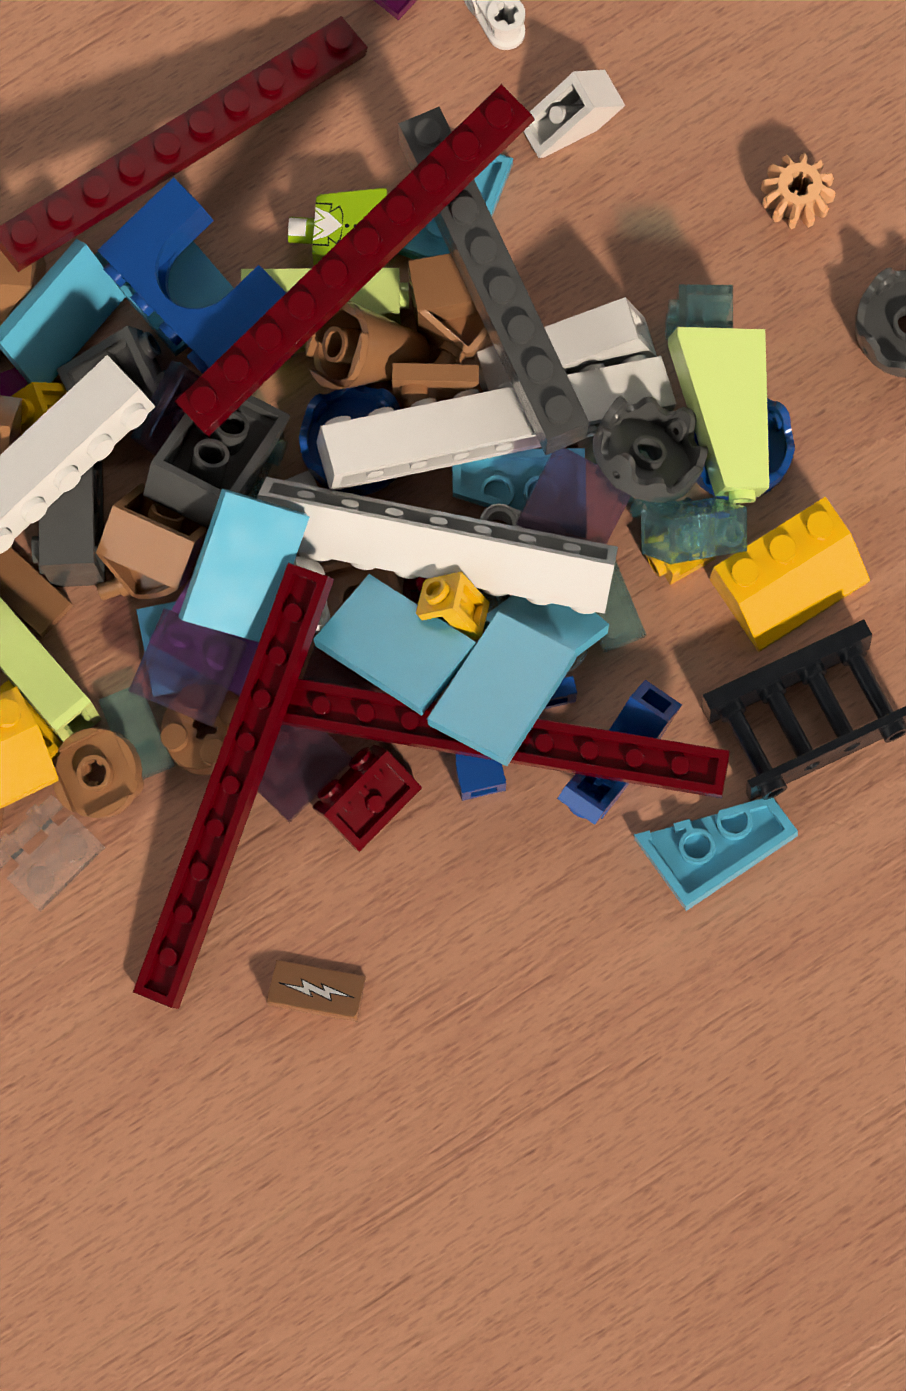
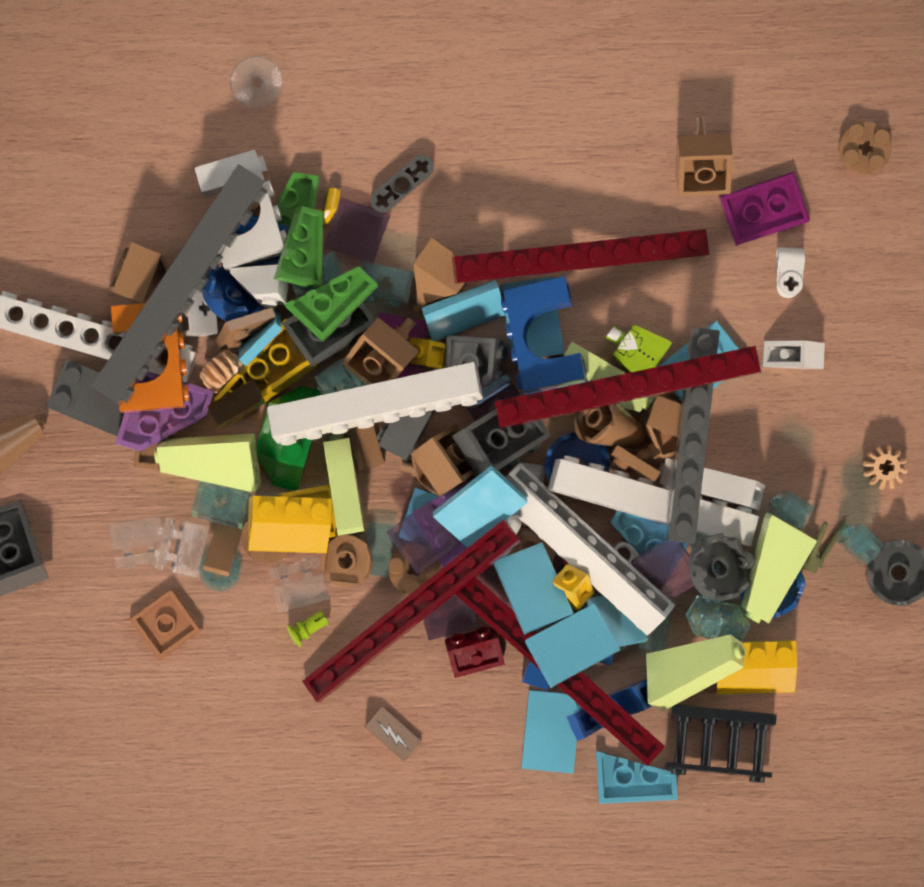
camera: 30 degrees right, 10 degrees up
(94, 908) = (307, 627): none -> lime pin
(549, 849) = (548, 735): none -> medium azure tile
(698, 621) = (690, 668): none -> yellowish green slope
(779, 377) = (813, 560): none -> olive plant
(828, 308) = (859, 542): none -> clear light blue brick

